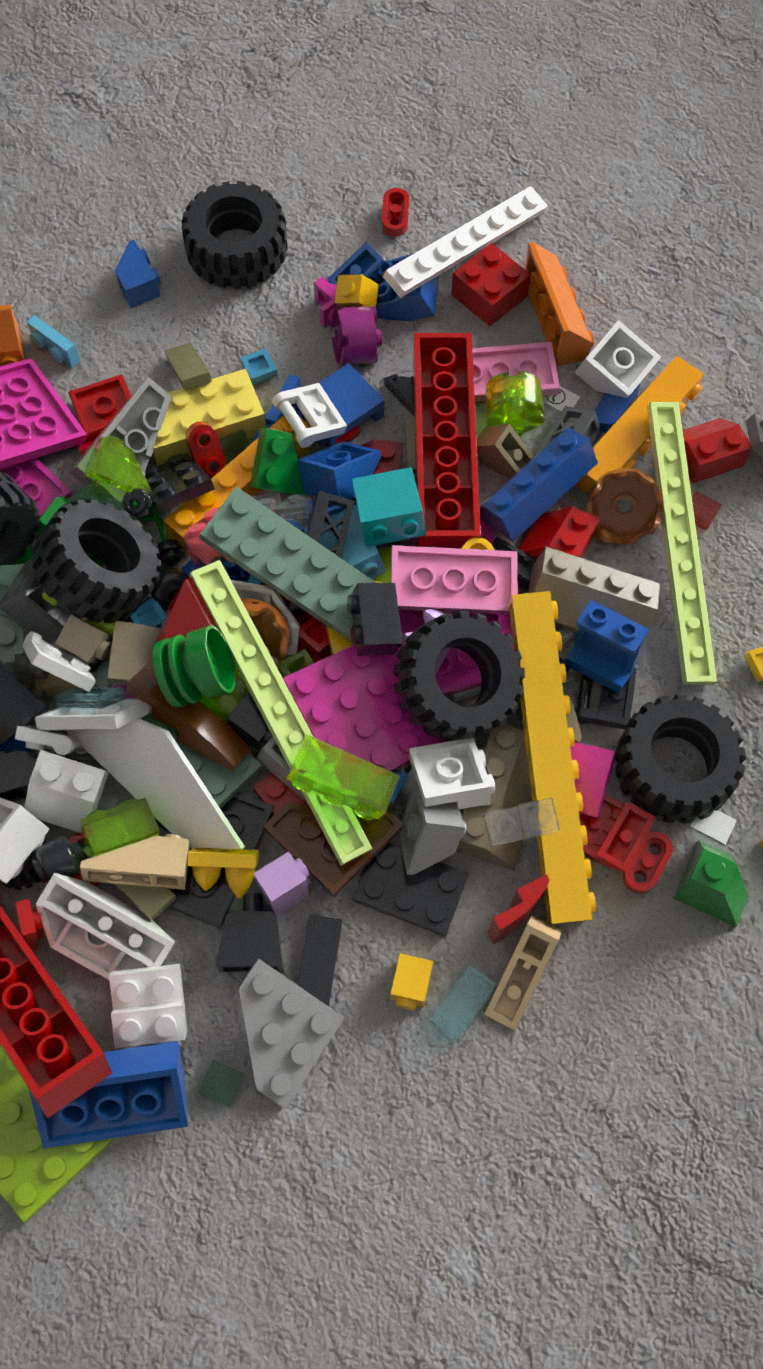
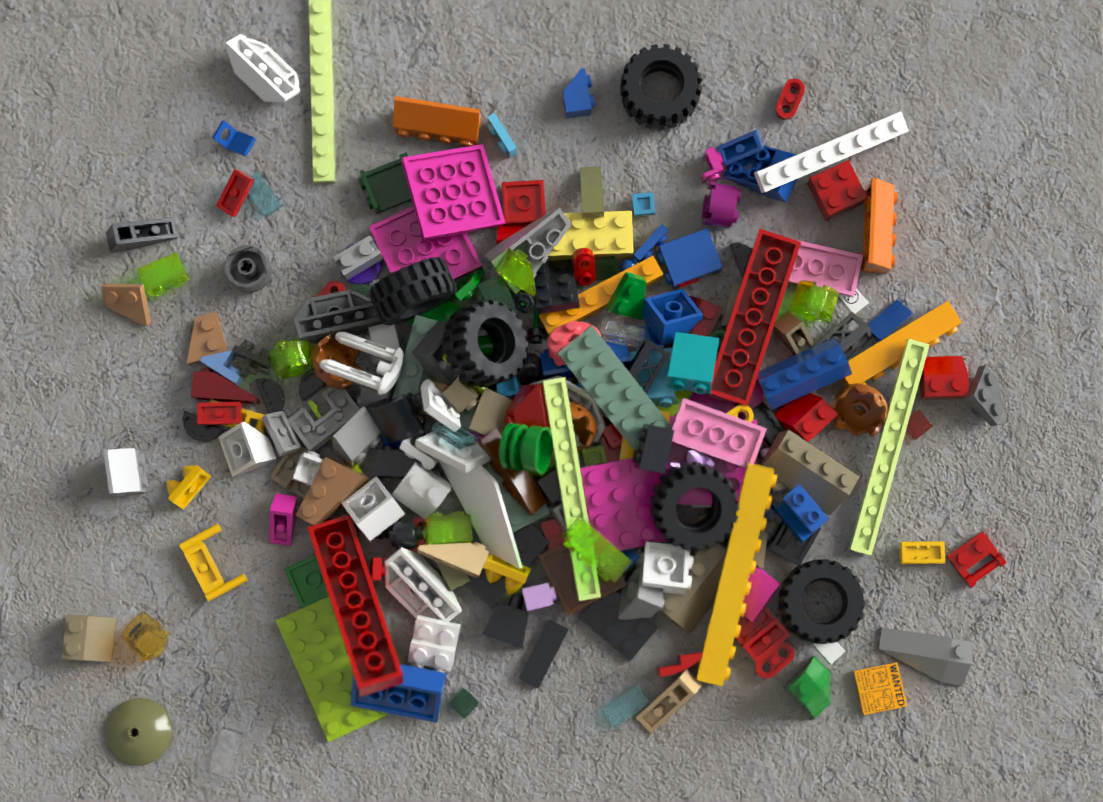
camera: 25 degrees right, 15 degrees up
(283, 1031) = (510, 686): light grey plate -> none
(317, 410) = (670, 264): white plate -> none
(355, 291) = (732, 172): yellow brick -> none
(411, 981) = (597, 683): yellow brick -> none
(521, 822) = (699, 613): clear slope -> none
(618, 362) = (903, 290): white slope -> none

